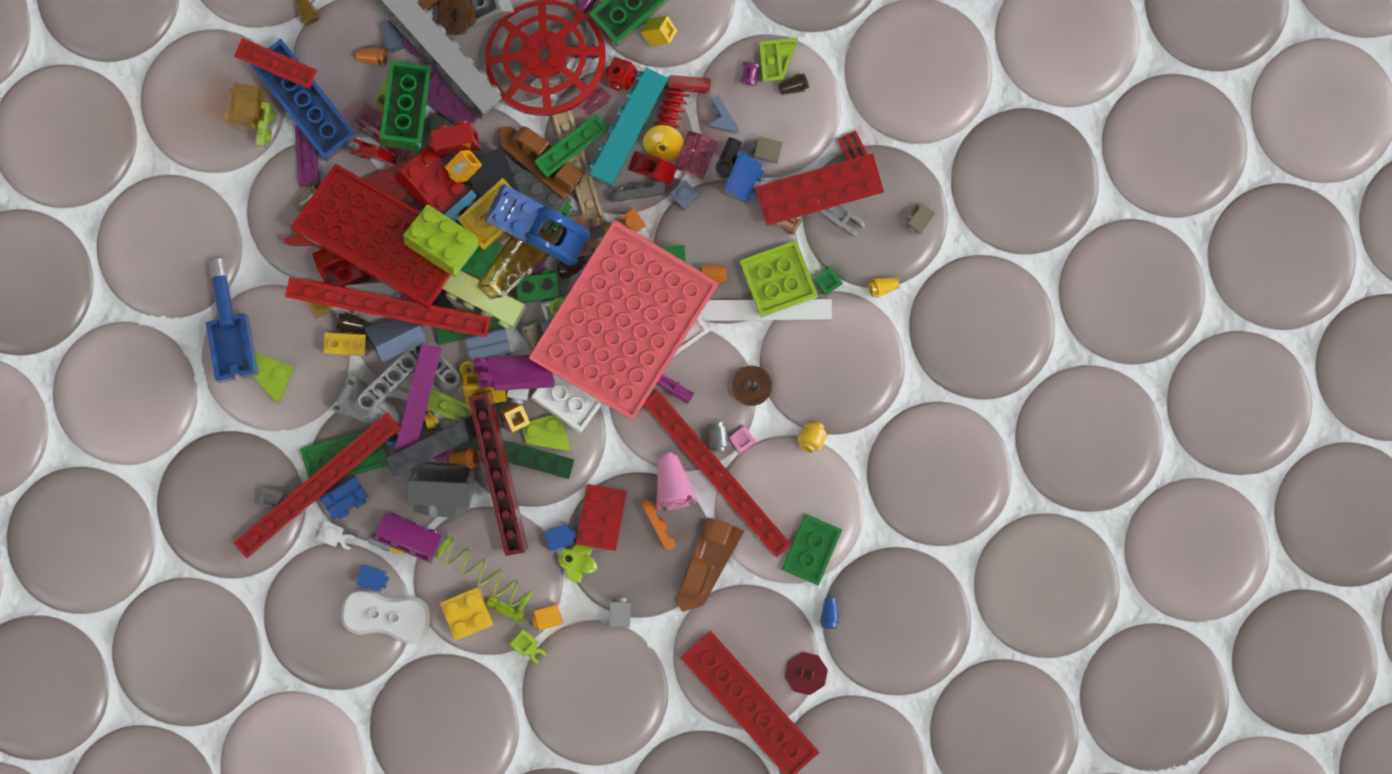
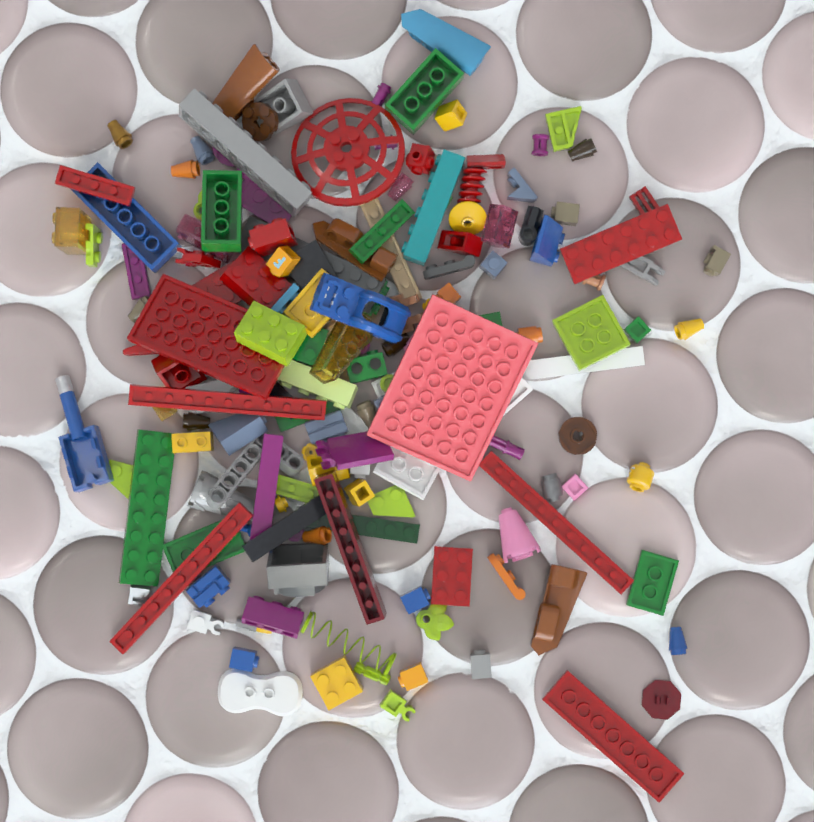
camera: 10 degrees left, 0 degrees up
(290, 408) = (147, 509): none -> green plate

